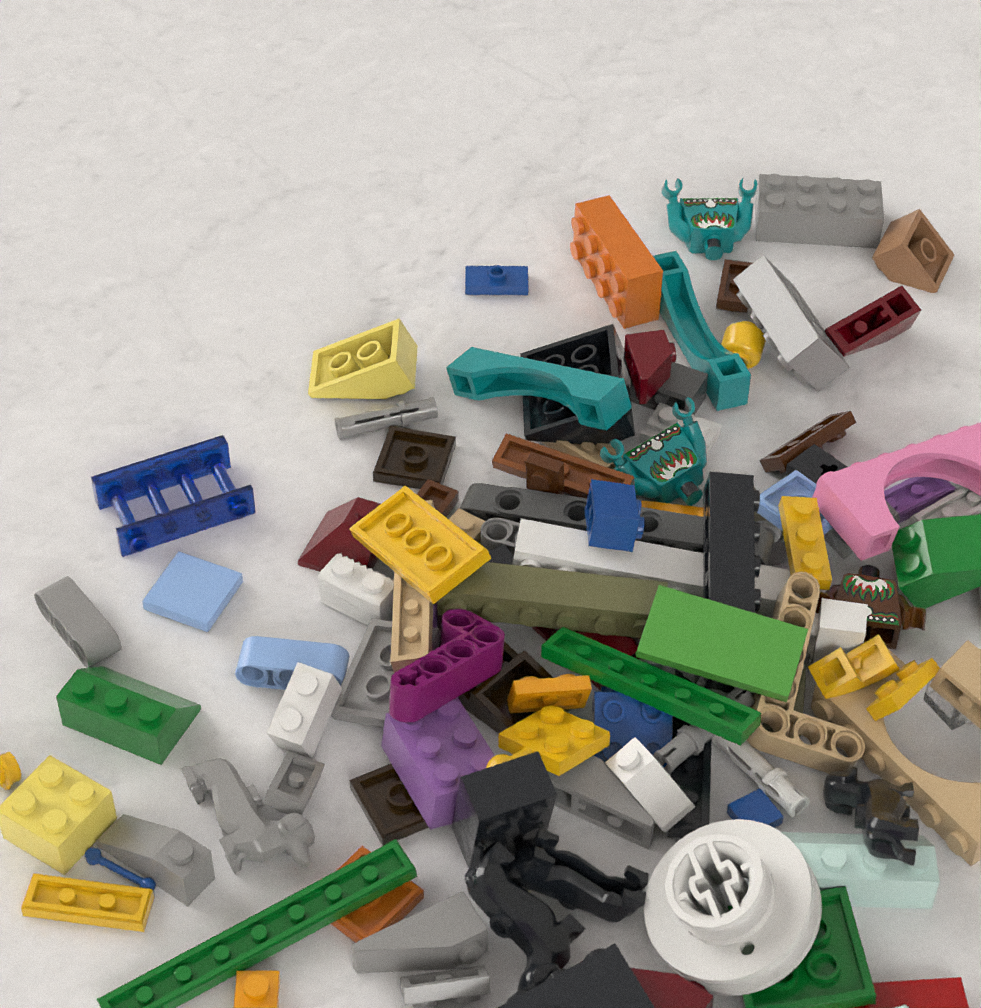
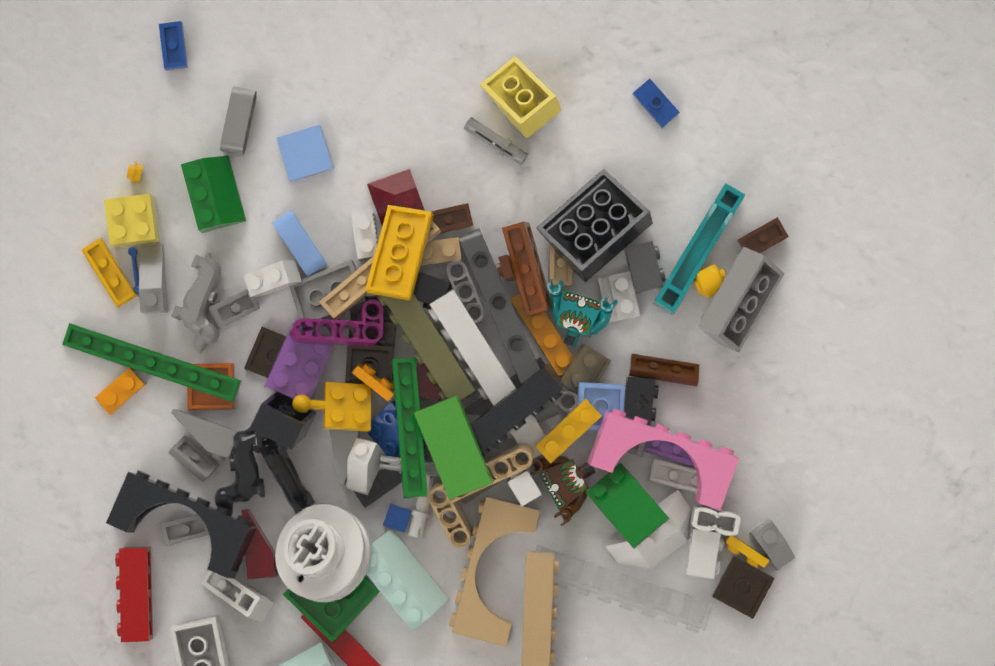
camera: 50 degrees right, 40 degrees up
(165, 471) = (368, 74): clear blue fence -> none
(413, 457) = (483, 179): dark brown tile -> none
(591, 396) = (565, 172): teal arch -> none
(613, 516) = (491, 333): blue brick -> none
(616, 262) = (716, 161): orange brick -> none
(648, 362) = (635, 254): dark red slope -> none
(709, 223) = (804, 184): teal torso -> none
(819, 211) = (869, 237): light grey brick -> none
(852, 671) = (506, 510): yellow slope -> none
(874, 323) = (782, 341): dark red slope -> none
(878, 812) = (427, 583): black animal -> none
(897, 693) = (510, 543): yellow plate -> none
(913, 253) = (877, 316): medium nougat slope -> none

